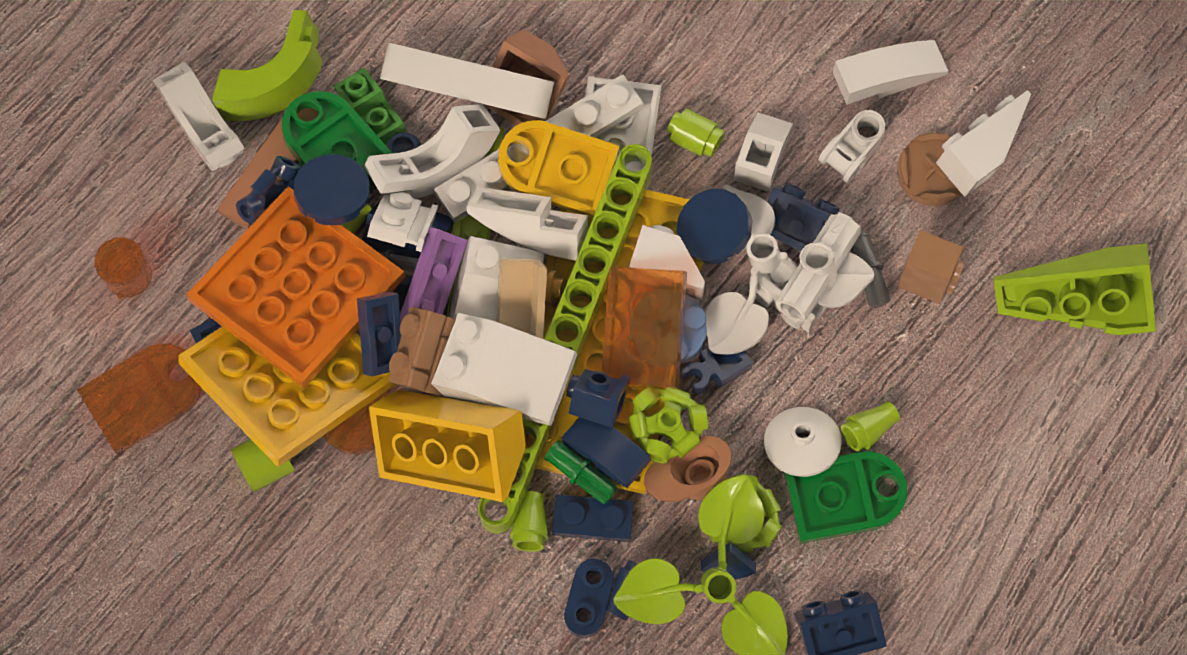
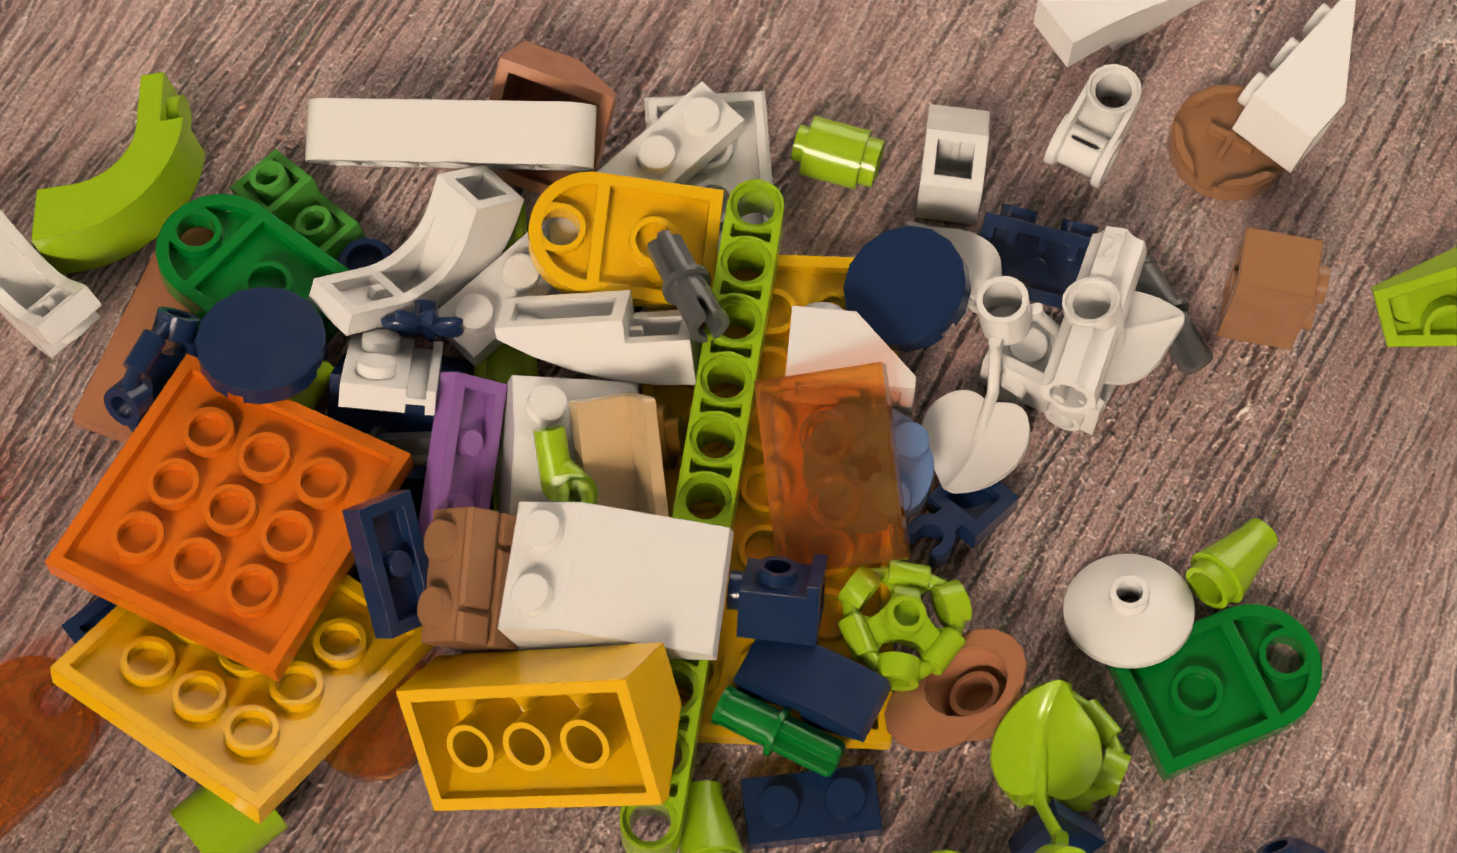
camera: 15 degrees left, 5 degrees down
(427, 191) = (425, 321): none -> dark blue plant
(486, 301) = (559, 475): none -> lime arm
(583, 201) = (687, 286): none -> dark grey axle

